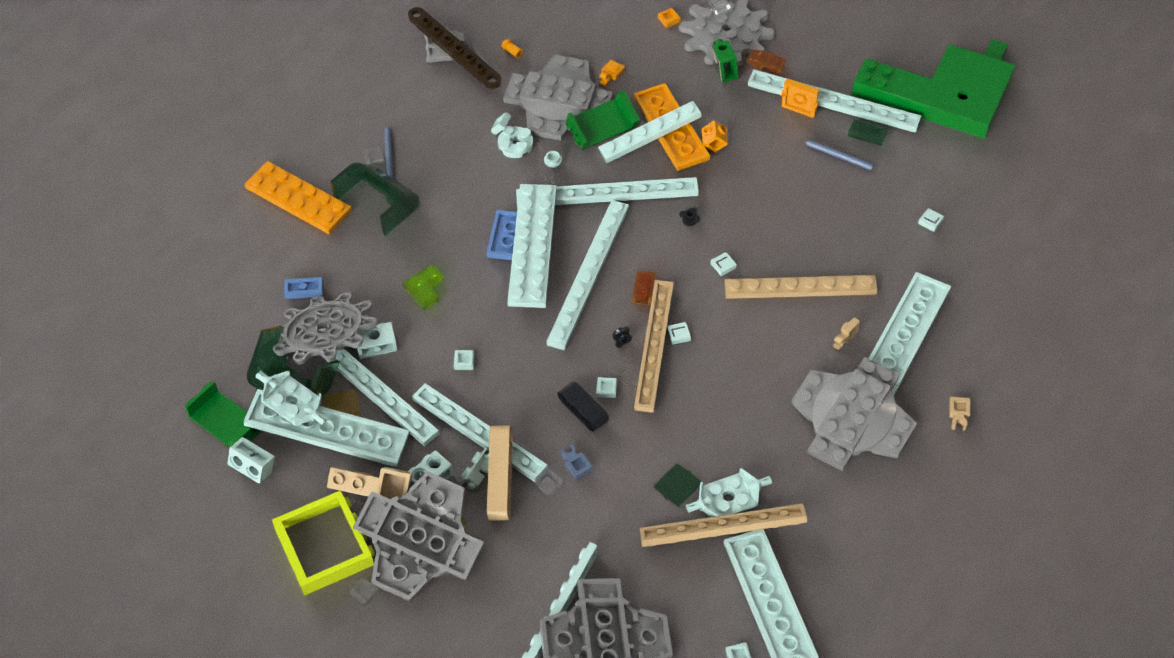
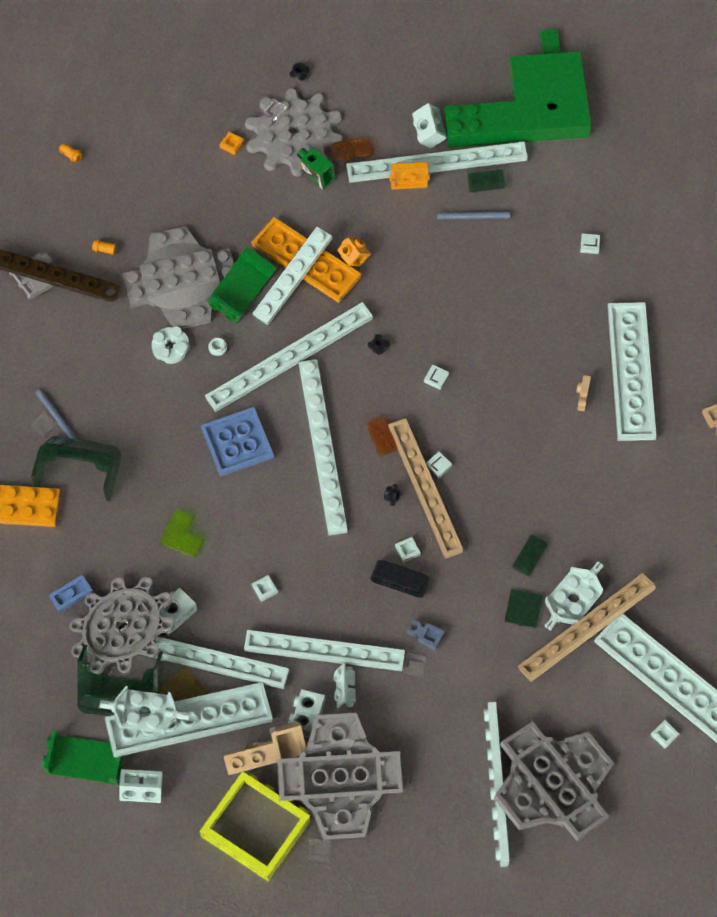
camera: 30 degrees left, 10 degrees up
(500, 123) = (146, 333): light aqua tile -> none
(500, 473) = (370, 680): tan beam -> none
(532, 246) = (258, 445): light aqua plate -> none
(611, 70) = (214, 226): light orange plate -> none
(712, 443) = (530, 555): none -> clear green plate
(800, 286) = (515, 366): tan plate -> none
(844, 69) = (429, 125): none -> light aqua brick
(853, 413) = (633, 466): light grey plate -> none

